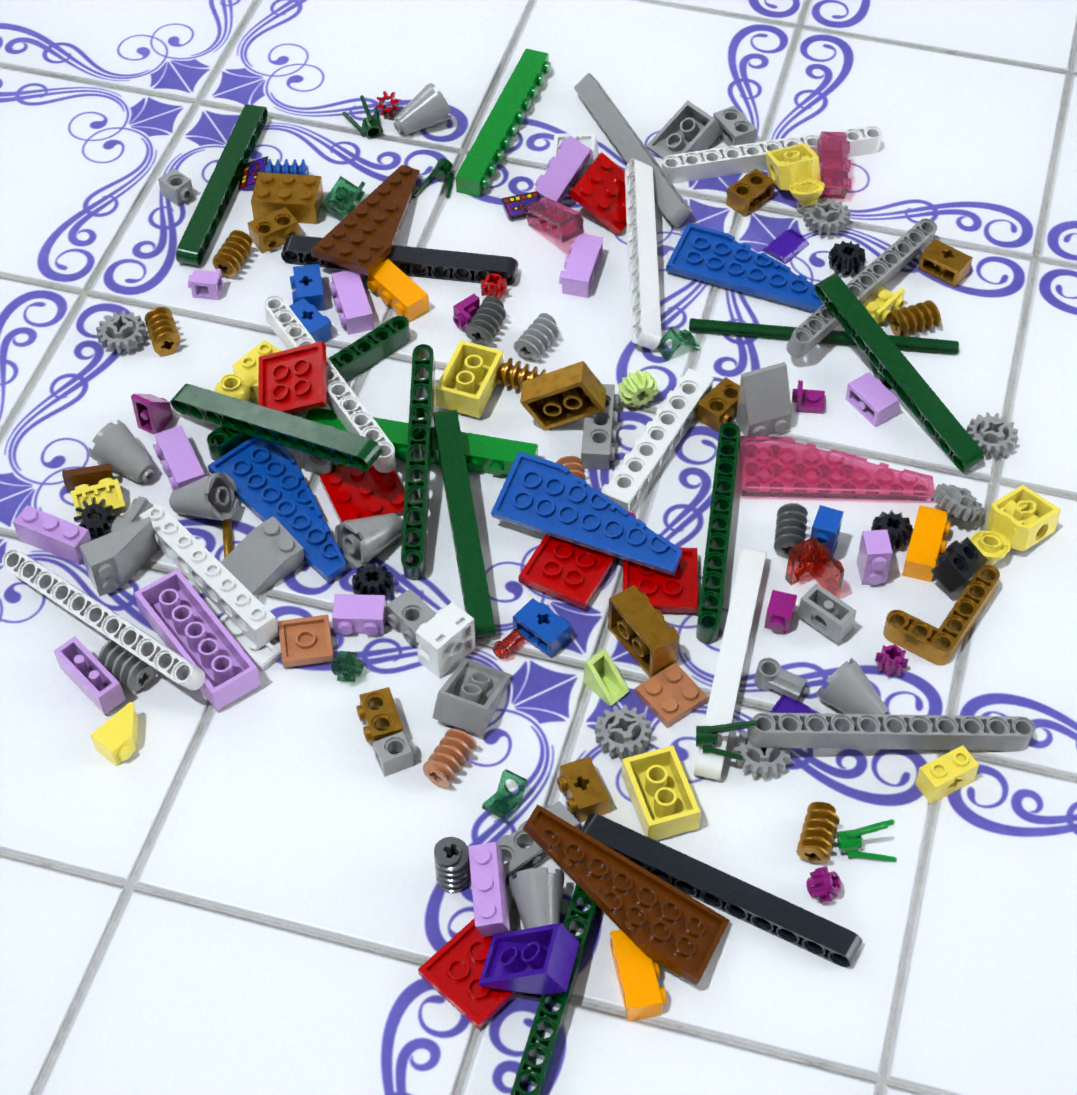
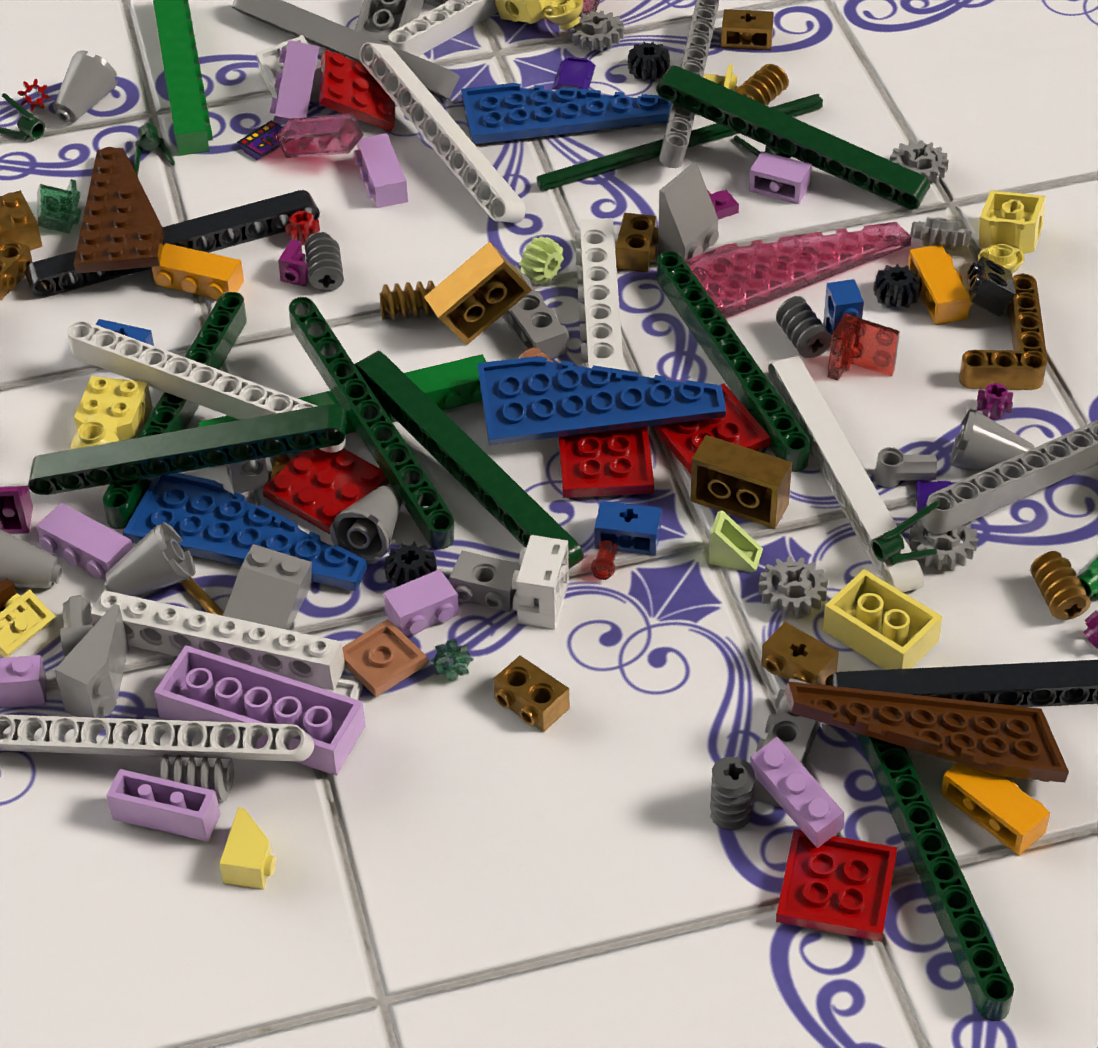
camera: 30 degrees left, 5 degrees down
(102, 512) = (33, 632): black gear -> none
(293, 379) = (169, 394): red plate -> none
(308, 285) = (89, 304): blue brick -> none
(351, 302) = (154, 303): lavender brick -> none
(393, 763) = (573, 721): light grey brick -> none
(448, 757) = (637, 696): nougat piece -> none
(469, 379) = (355, 317): light yellow brick -> none
(471, 696) = (610, 628): light grey slope -> none
(505, 801) = (725, 711): clear green bracket -> none
(531, 960) = (893, 839): dark purple slope -> none
(537, 337) = (392, 256): light grey piece -> none
(538, 896) = (852, 785): light grey cone -> none
(671, 695) = (808, 532): nougat plate -> none
(678, 338) = (544, 199): clear green bracket -> none
(750, 192) = (500, 38): pearl gold brick -> none
(780, 611) = (853, 405): magenta brick -> none
(827, 613) = (902, 385): light grey brick -> none
(874, 557) = (908, 312): lavender brick -> none

